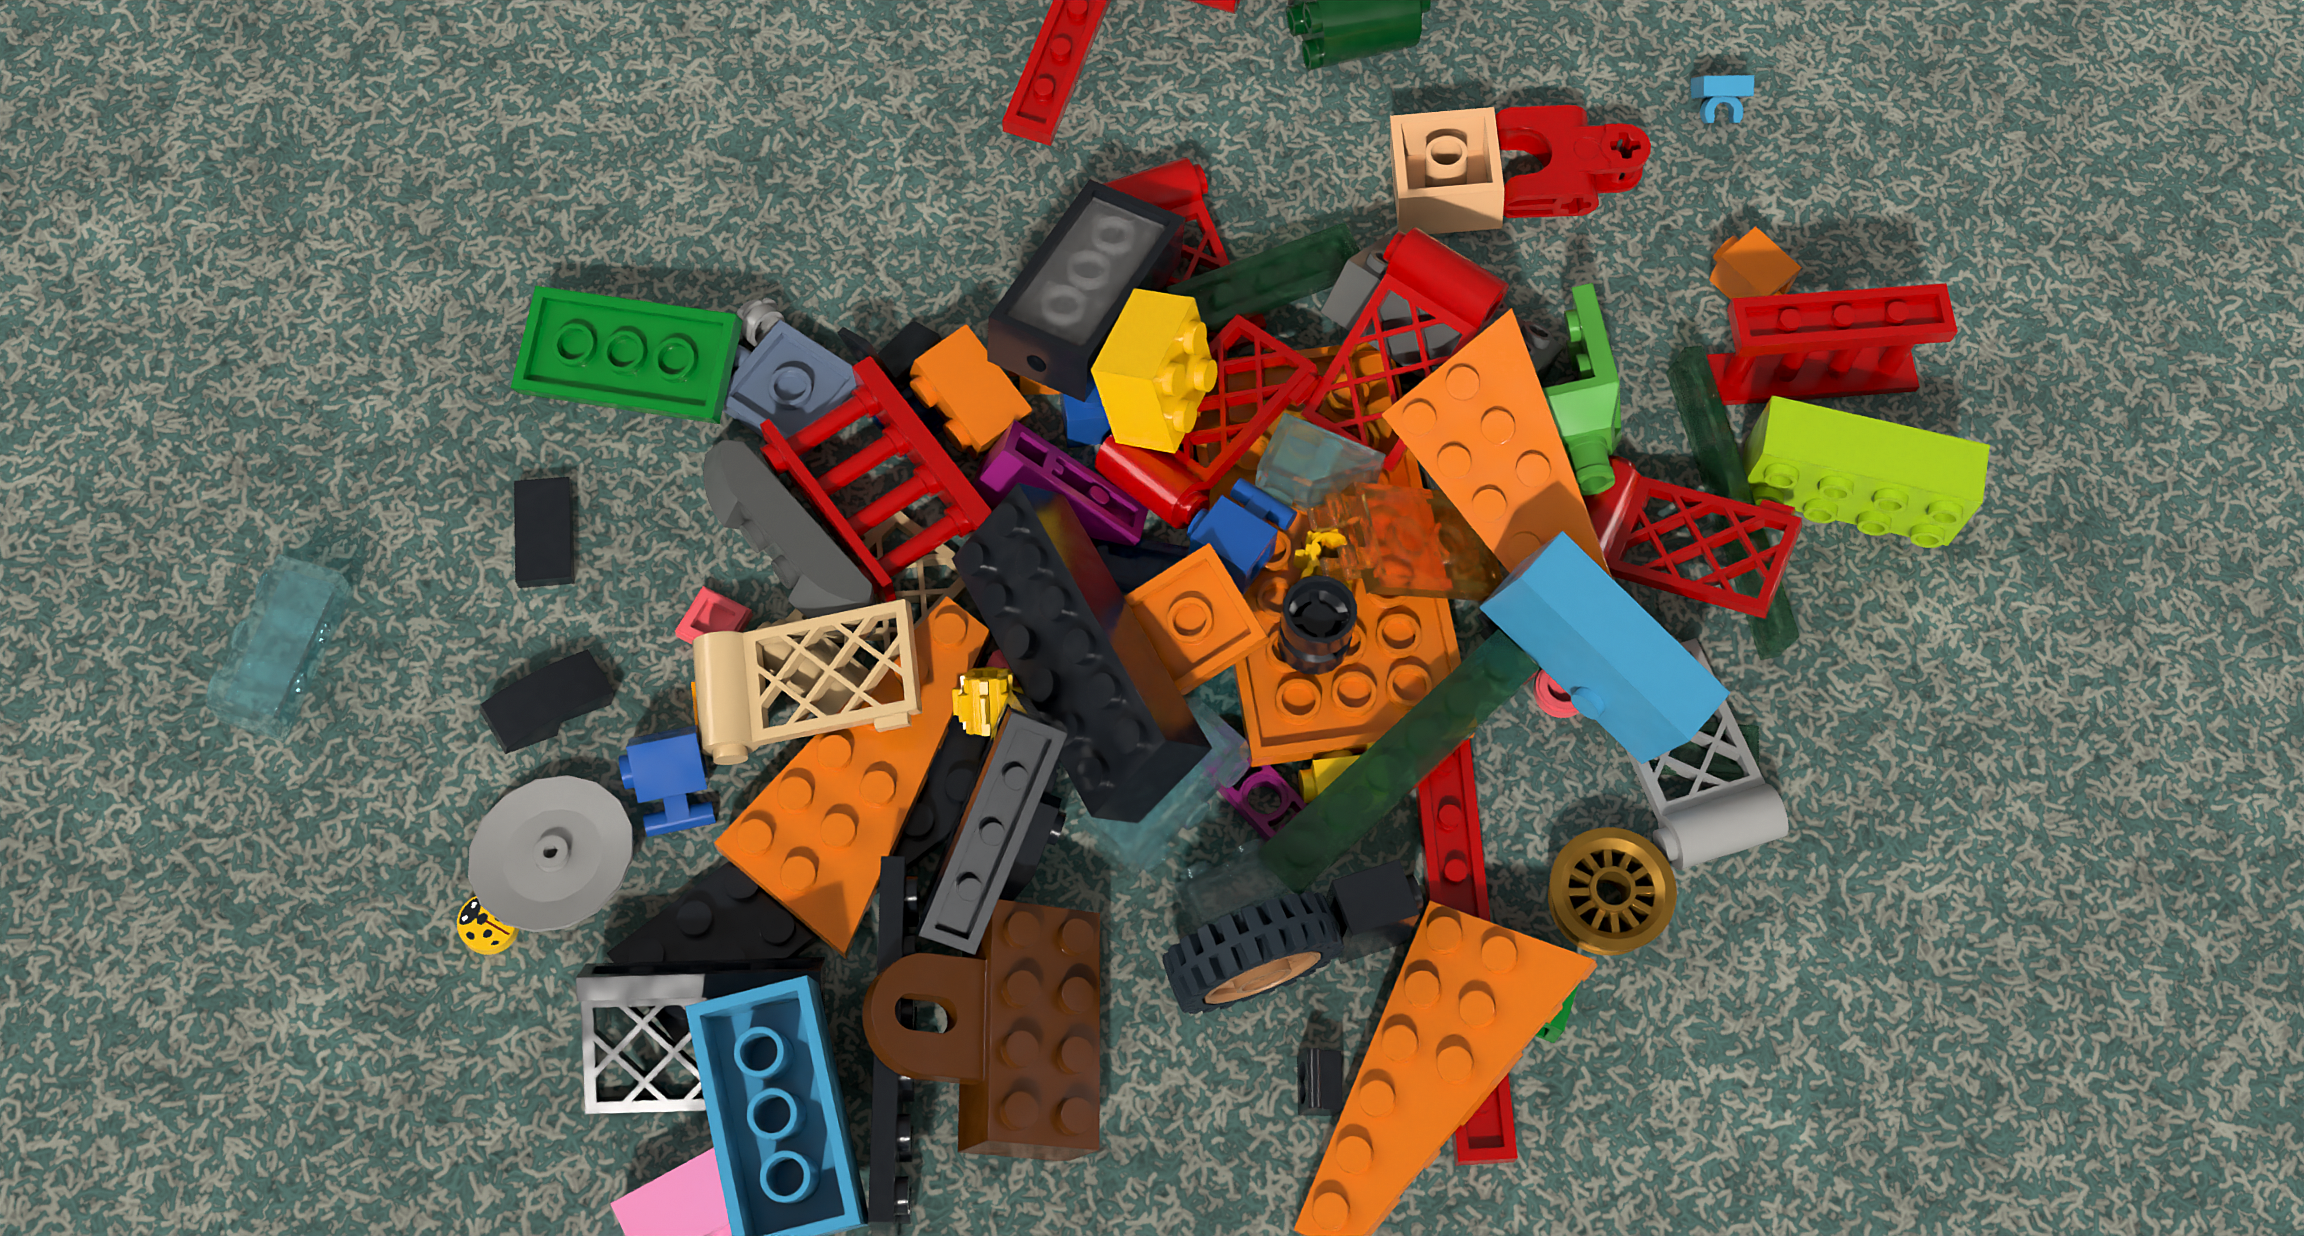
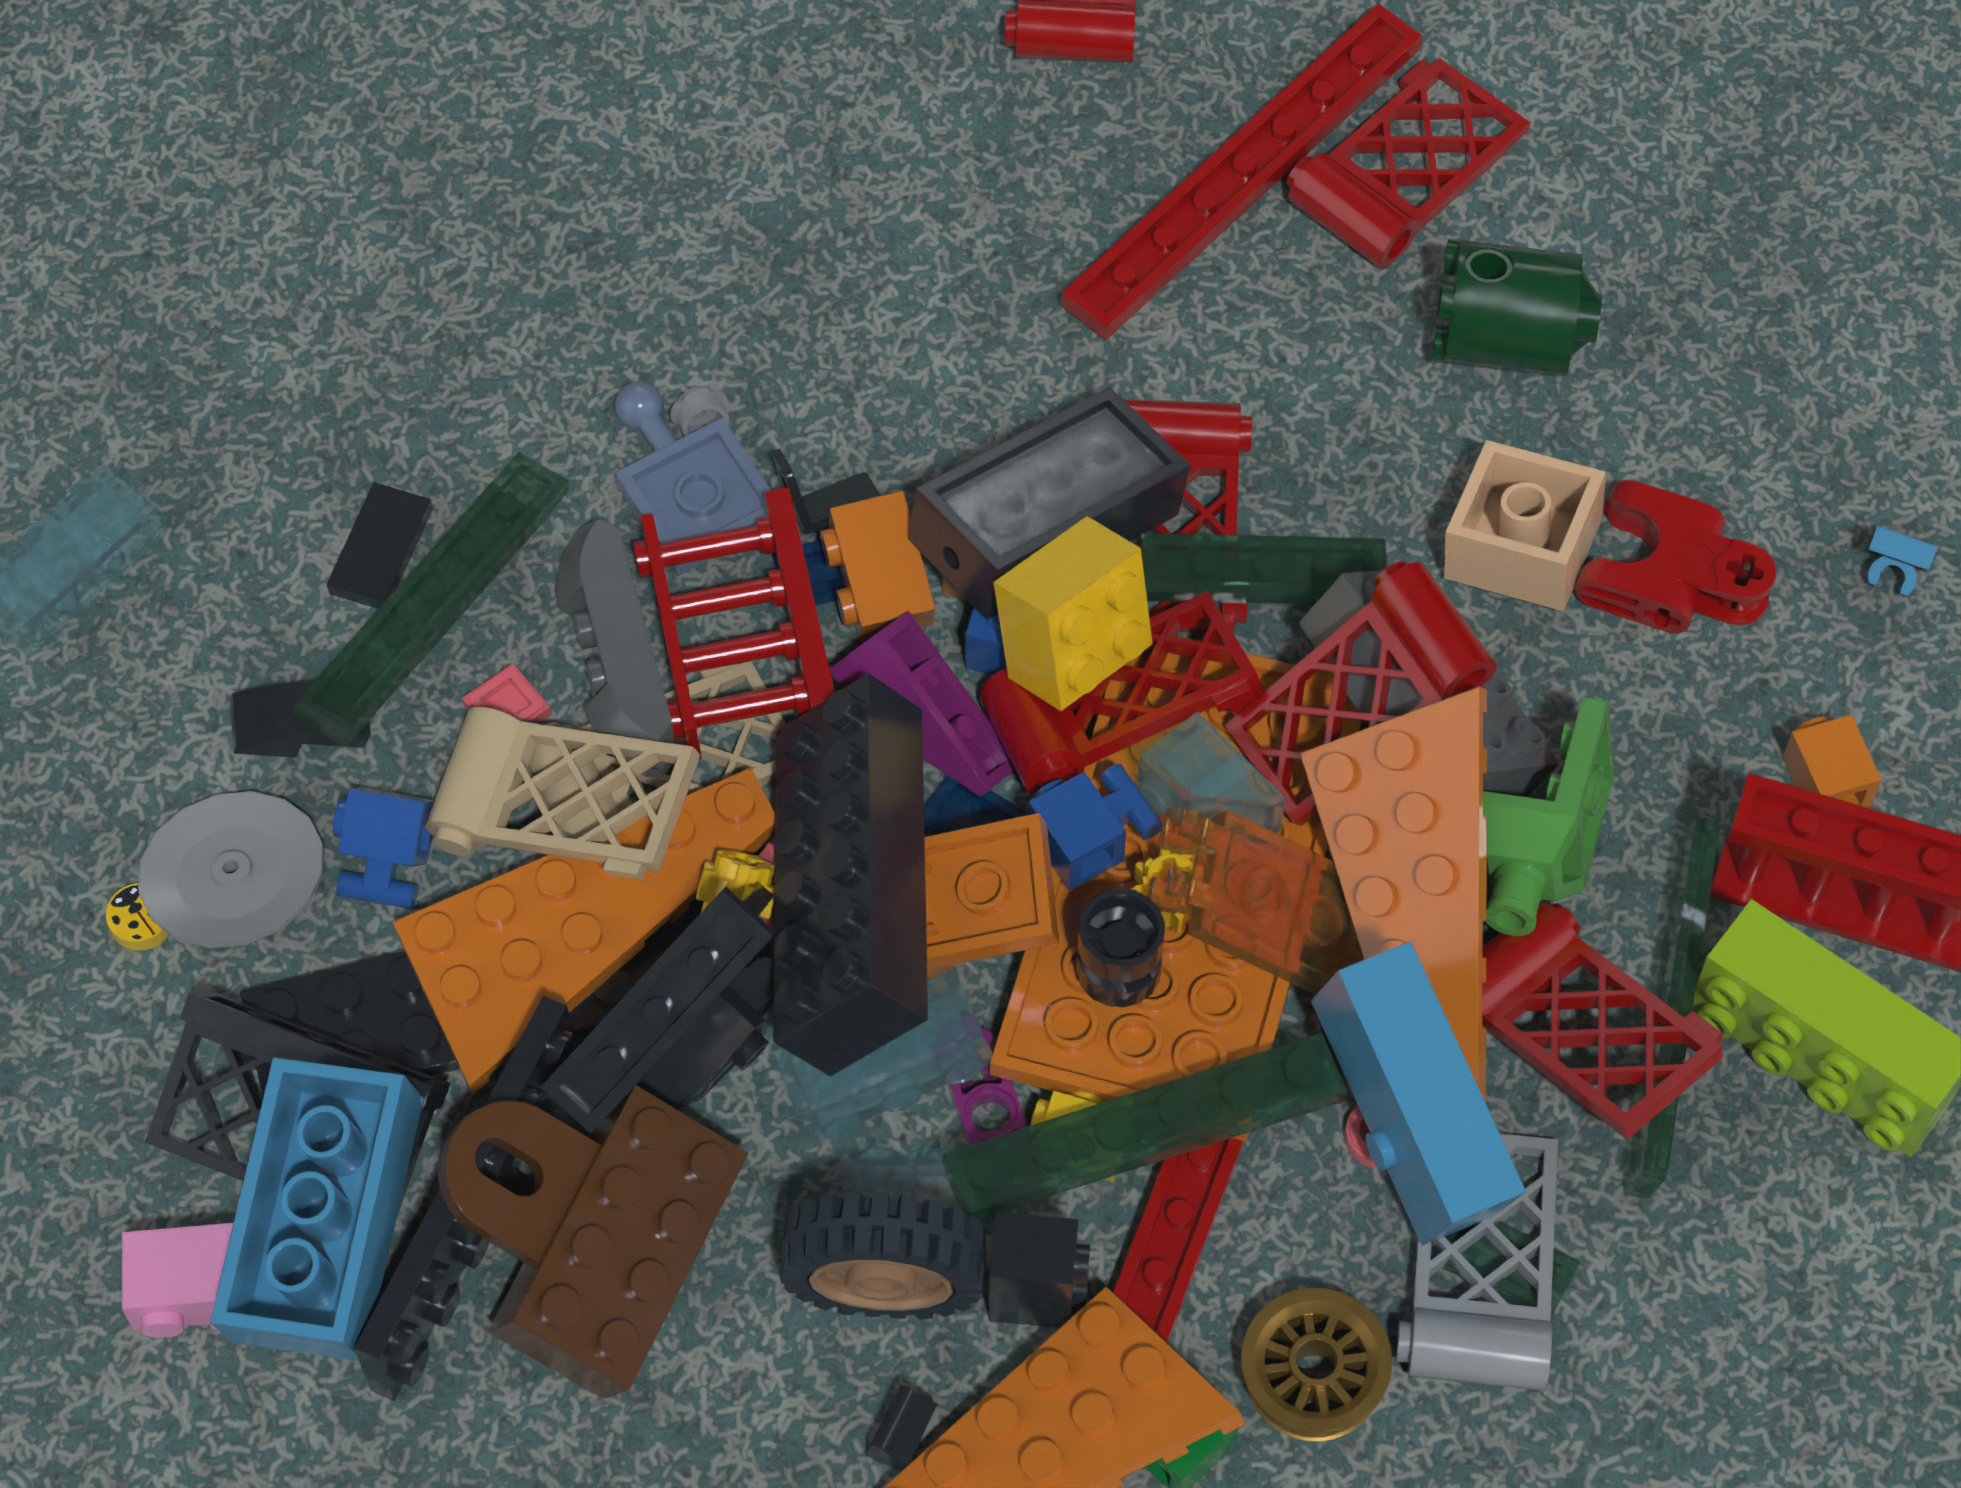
camera: 30 degrees right, 5 degrees down
(610, 562) = (430, 600): none -> clear green tile
(627, 354) = (545, 395): green plate -> none

